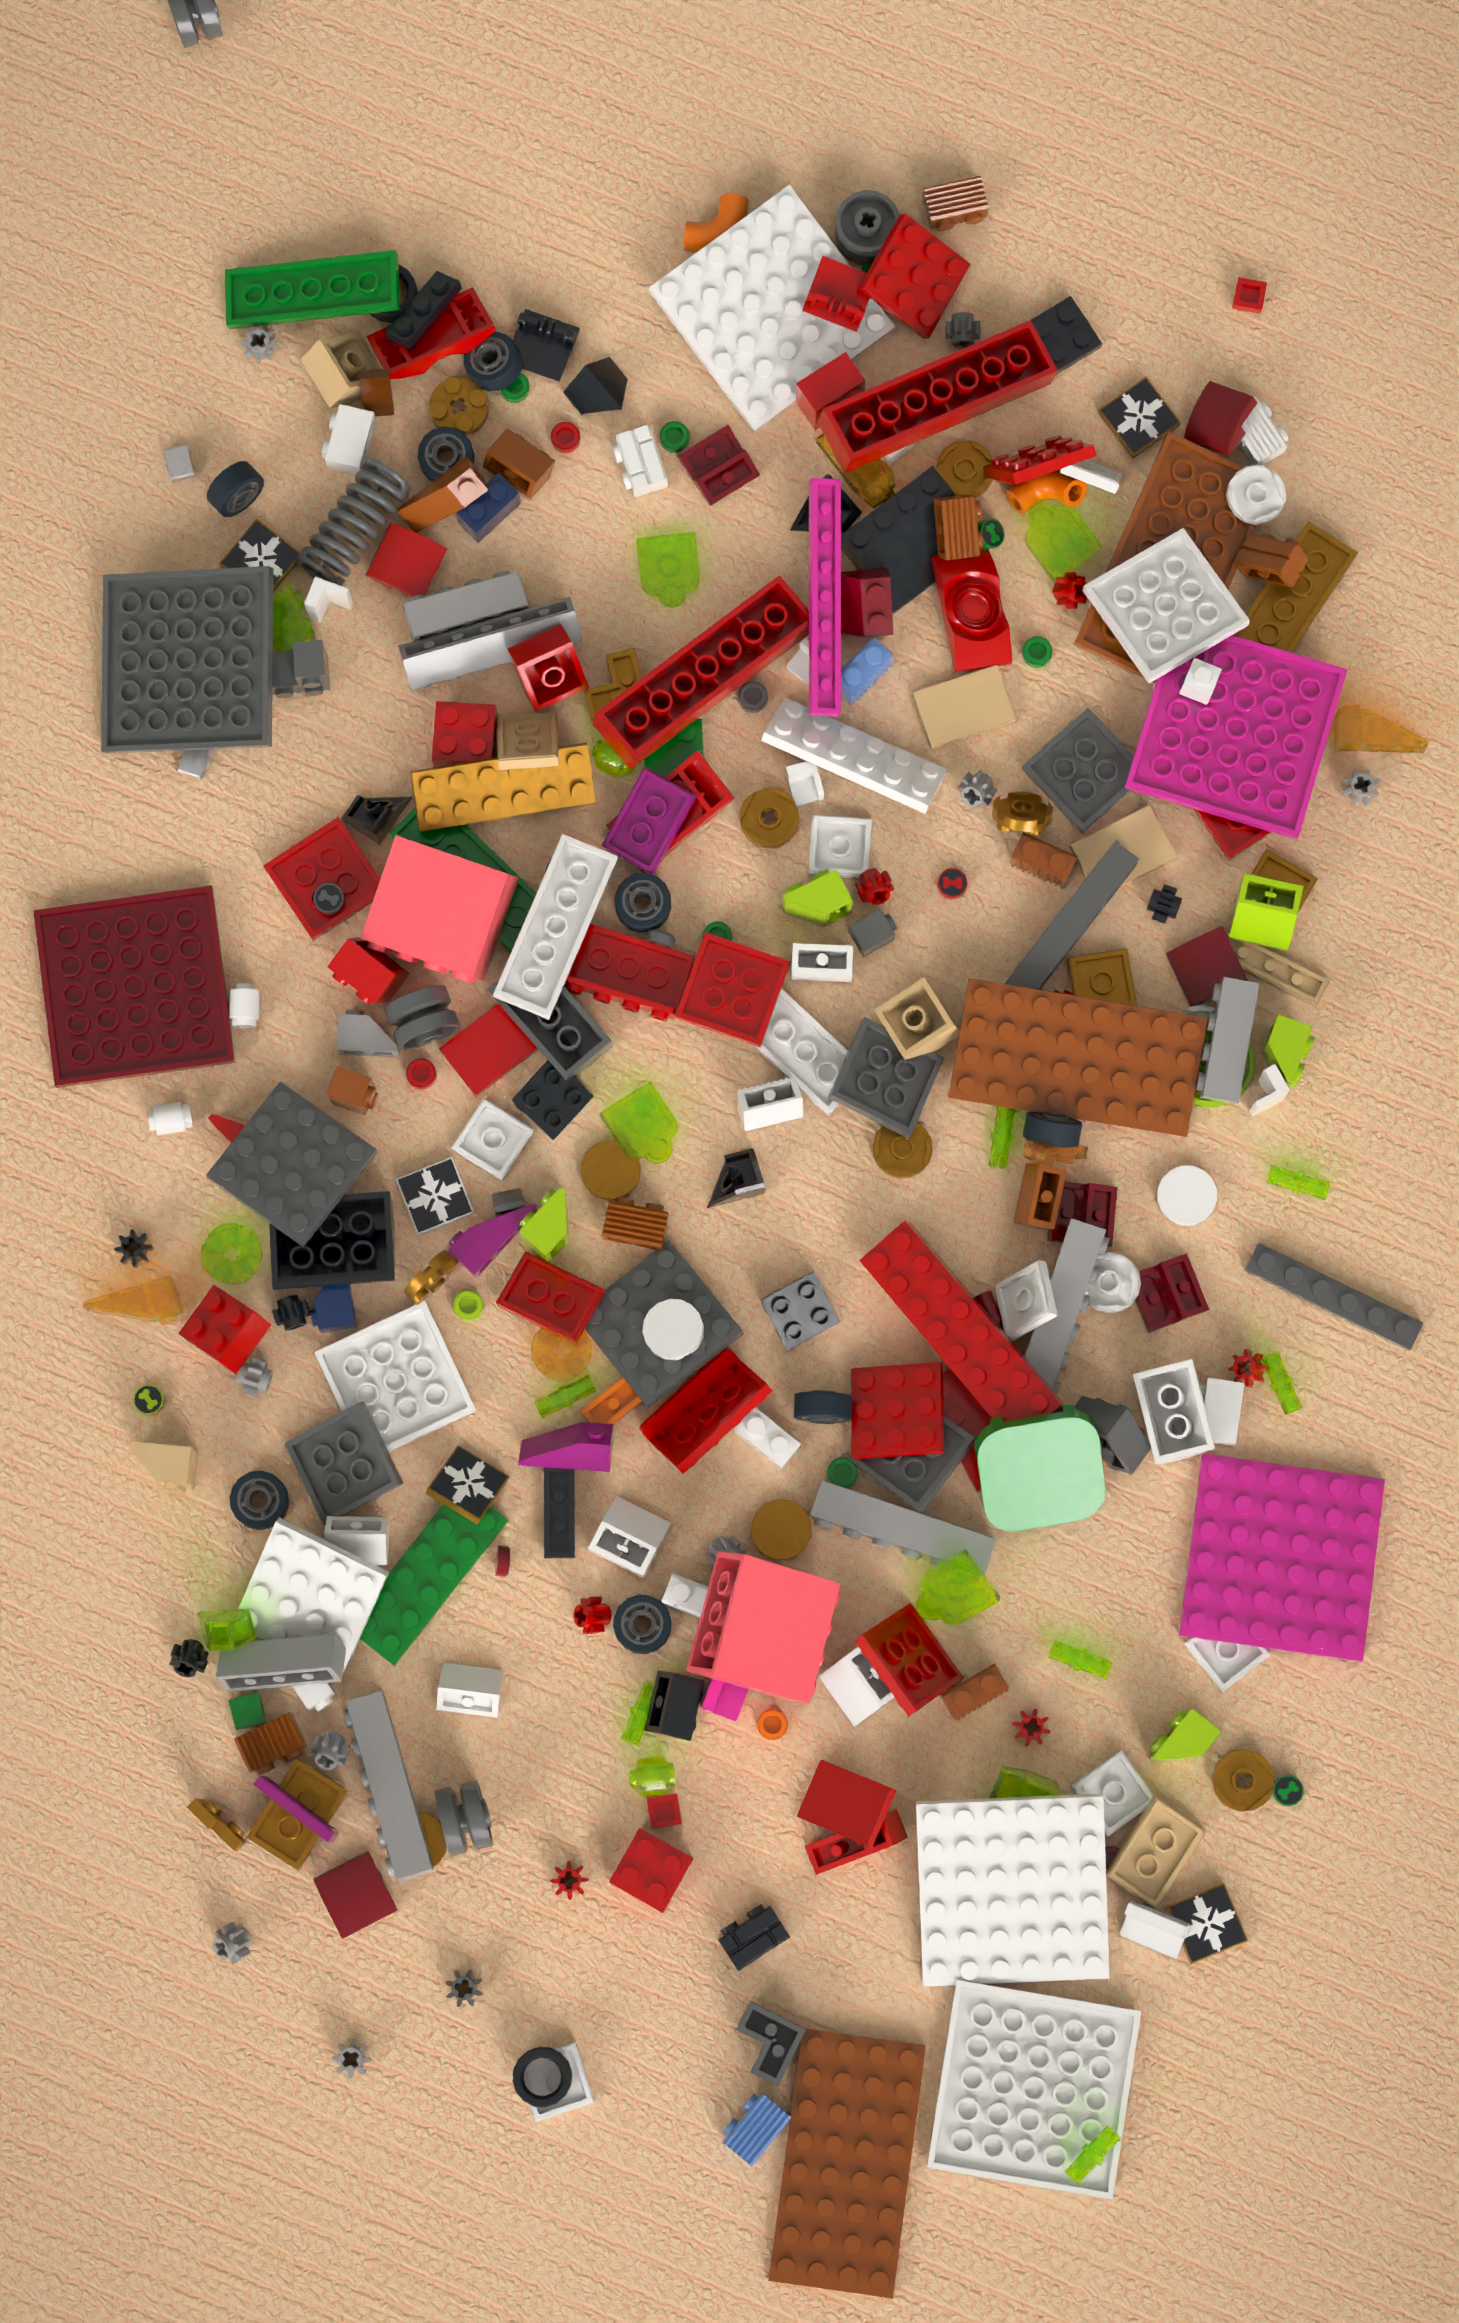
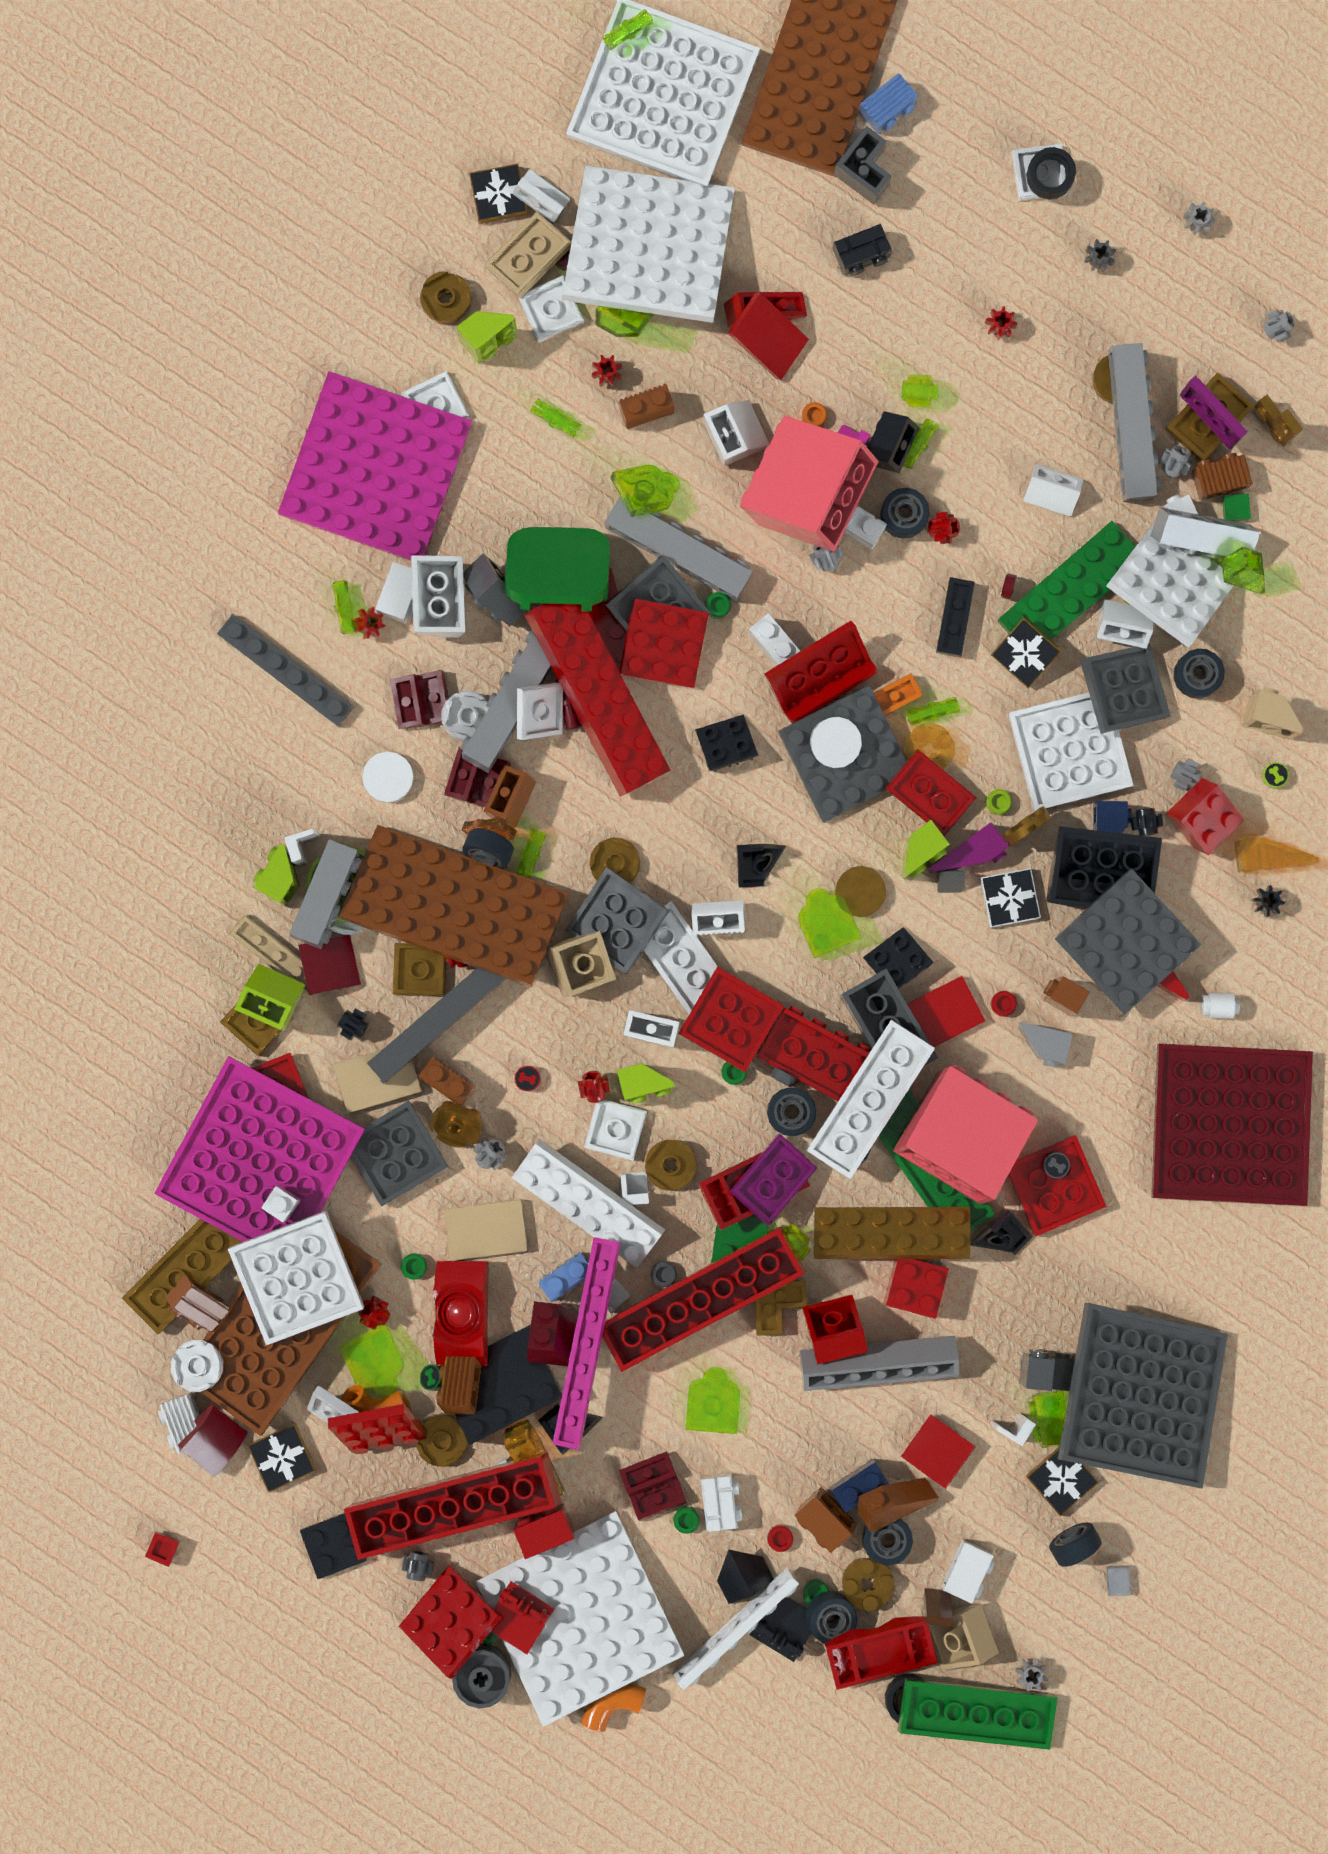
camera: 175 degrees left, 5 degrees up
(189, 1658) = (1277, 556): black gear -> none
(194, 763) = (1150, 1307): flat silver piece -> none
(216, 1245) = (1198, 892): clear neon green plate -> none
(244, 1006) = (1142, 1088): white brick -> none
(355, 1894) = (1174, 346): dark red slope -> none
(368, 473) = (945, 1525): dark grey piece -> none
(368, 971) = (1037, 1092): red brick -> none
(422, 1017) = (996, 1046): dark grey wheel -> none
(423, 310) = (884, 1676): black plate -> none
(462, 1818) = (1078, 383): dark grey wheel -> none
(464, 605) = (895, 1399): light grey brick -> none
(492, 1139) = (953, 936): white tile -> none
(527, 740) = (864, 1268): tan tile -> none
(572, 1447) = (937, 665): magenta slope -> none
(596, 330) = (742, 1623): none -> white plate
(629, 1536) = (902, 584): white slope -> none
(635, 1224) = (848, 840): dark orange brick -> none
(651, 1870) = (934, 317): red brick -> none
(664, 1811) = (914, 362): red plate -> none
(781, 1529) = (776, 569): pearl gold tile -> none
(823, 1407) = (724, 657): black wheel -> none
(873, 932) = (602, 1048): dark grey brick -> none
(909, 1659) = (695, 438): red plate -> none
(955, 203) = (400, 1683): dark orange brick -> none
(1287, 1790) = (411, 283): tile -> none
(1298, 1182) = (309, 777): clear neon green pin -> none
(1363, 780) = (170, 1097): light grey gear -> none
(1369, 732) = (149, 1140): clear yellow slope -> none

